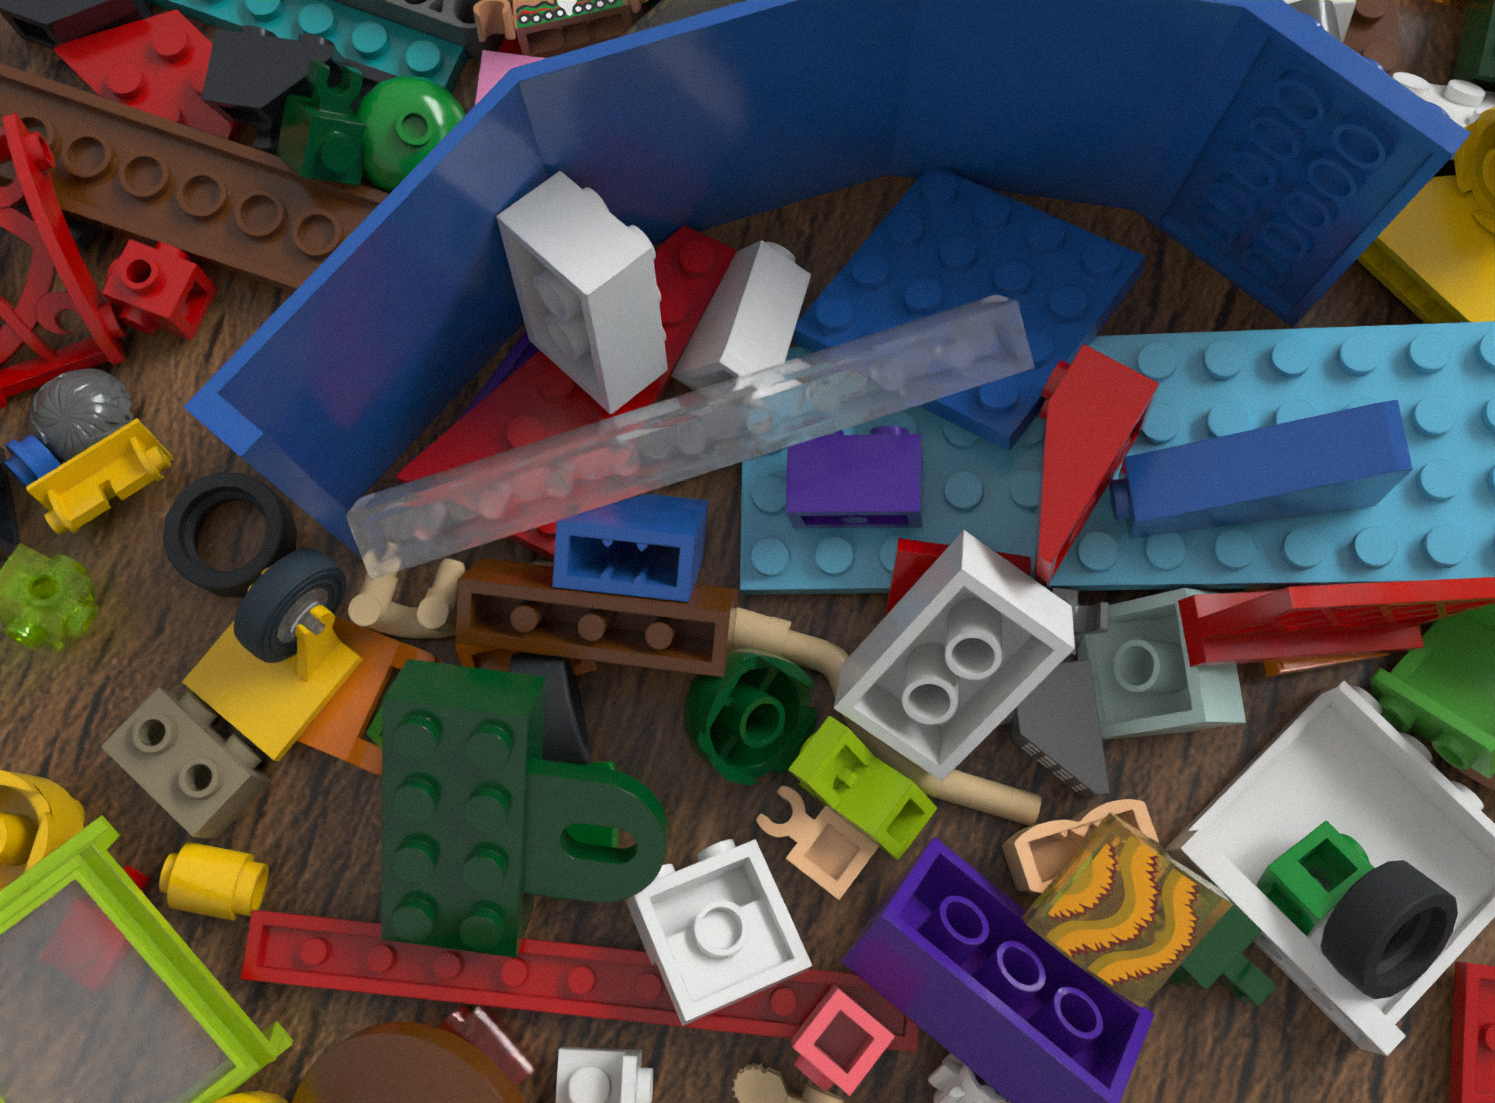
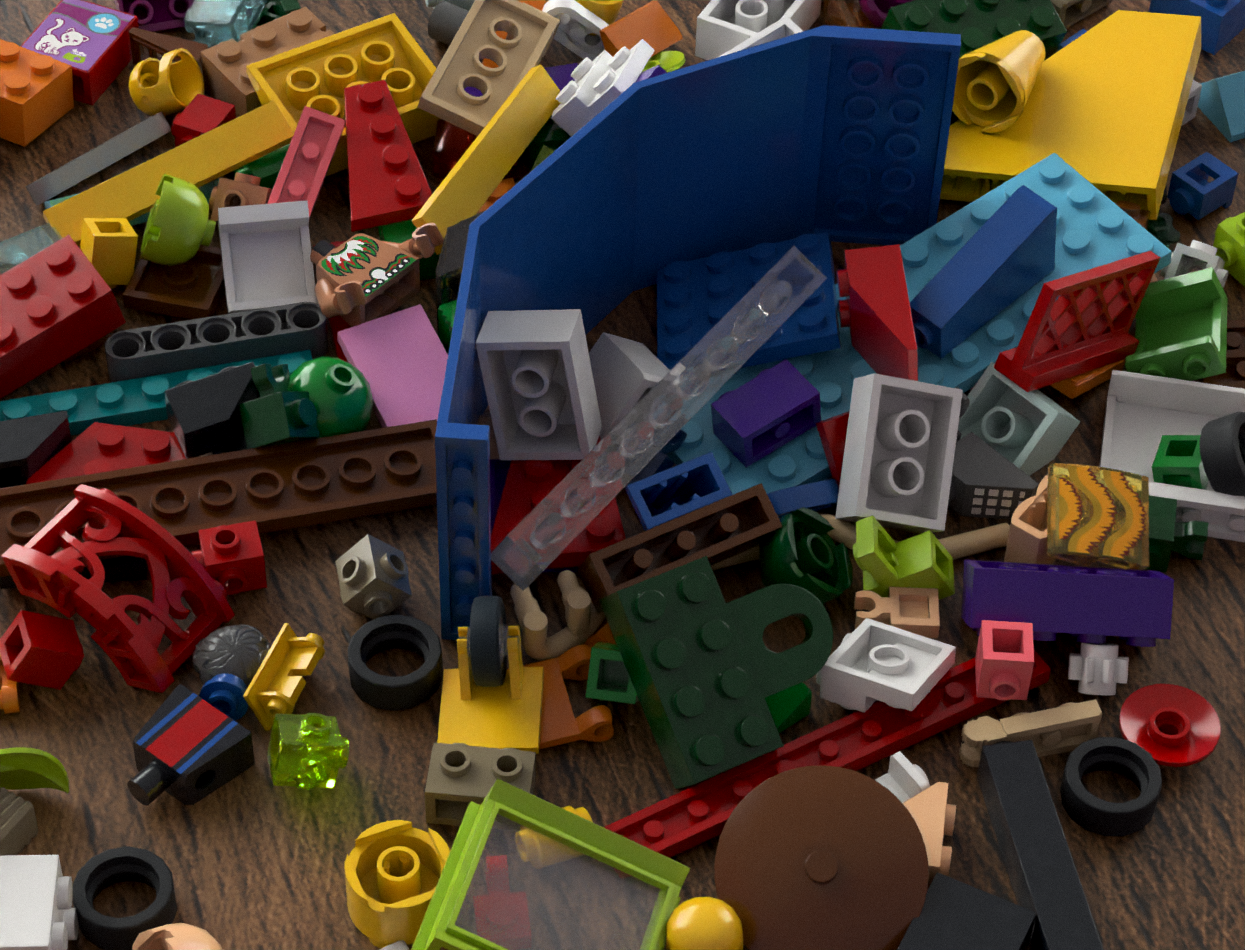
camera: 40 degrees left, 30 degrees down
(819, 613) = (813, 496): none -> blue beam

